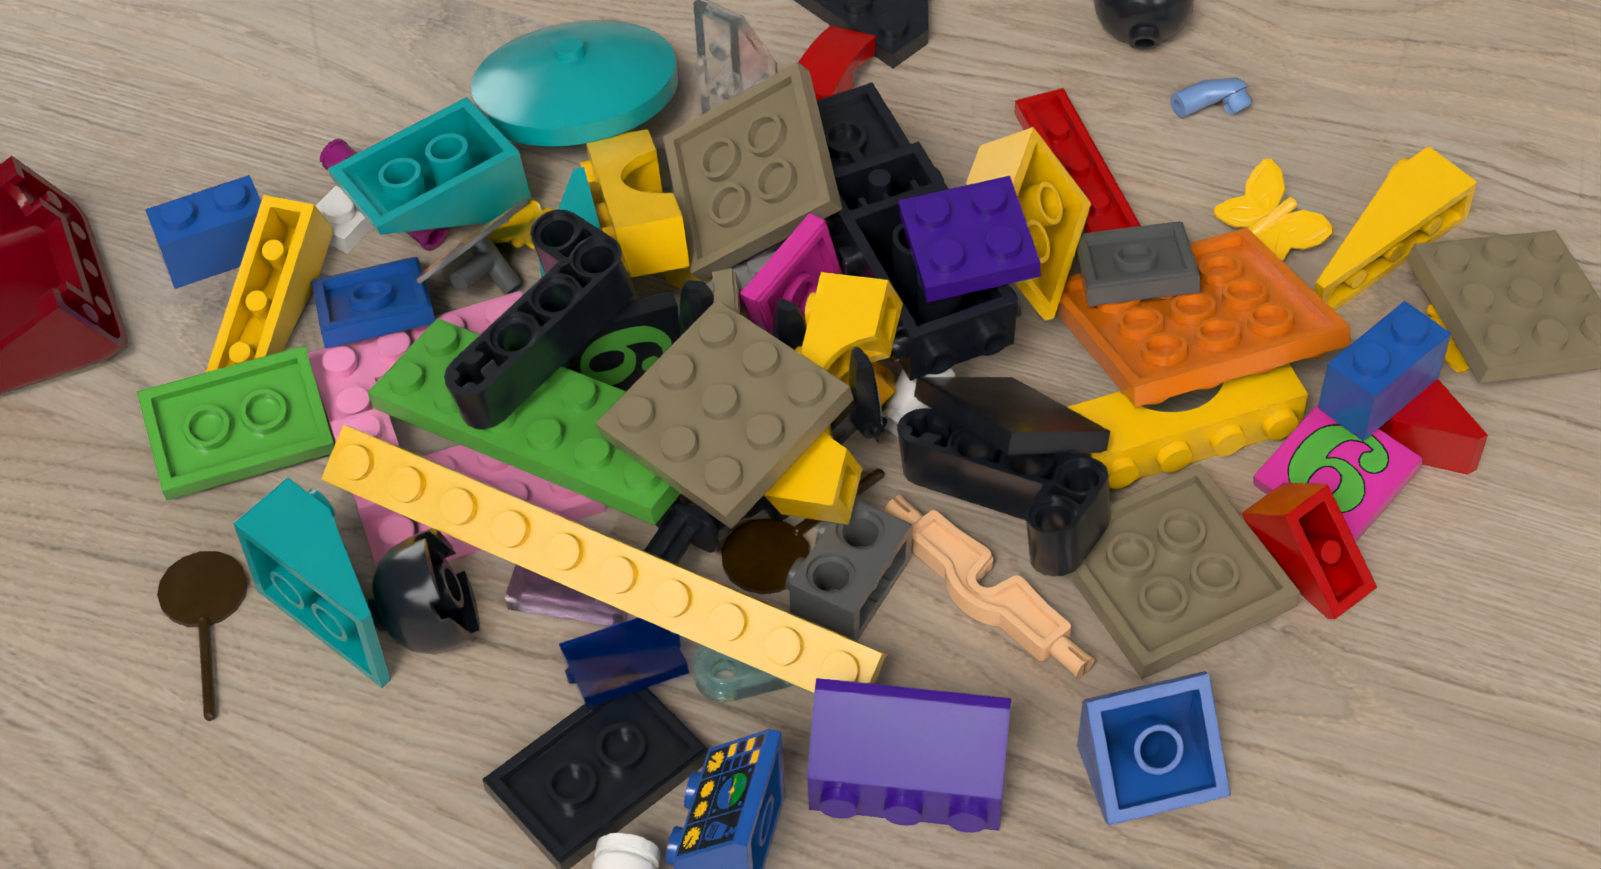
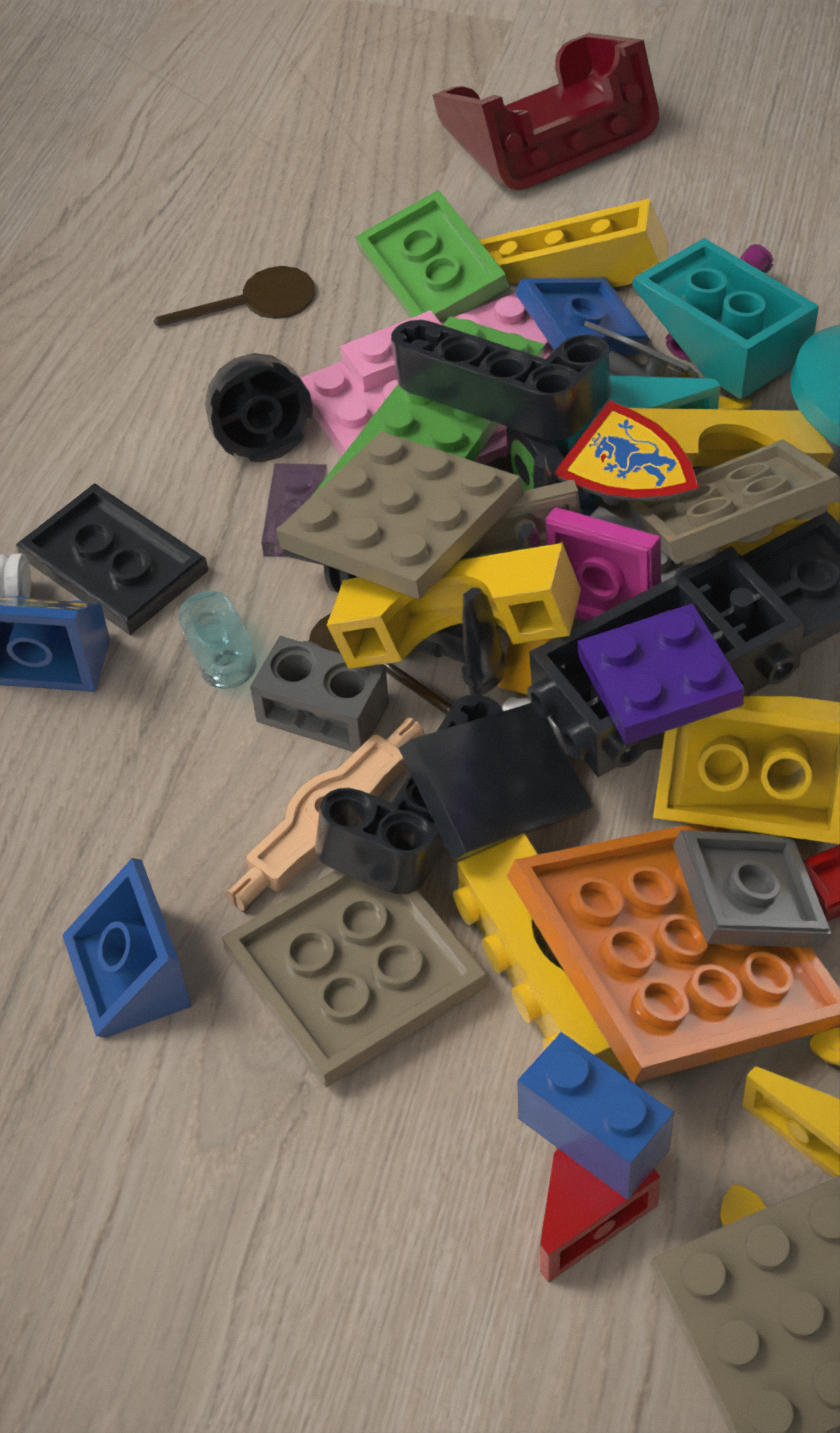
camera: 85 degrees right, 0 degrees up
(205, 230) = (631, 177): blue brick -> none
(308, 574) = (267, 311): teal slope -> none
(597, 564) = (289, 479): yellow plate -> none
(622, 660) = (215, 550): clear blue piece -> none
(686, 233) = (628, 459): none -> shield
(908, 754) = (100, 754): slope -> none
(1312, 545) = (388, 1086): red slope -> none
(1358, 472) = (477, 1121): tile -> none

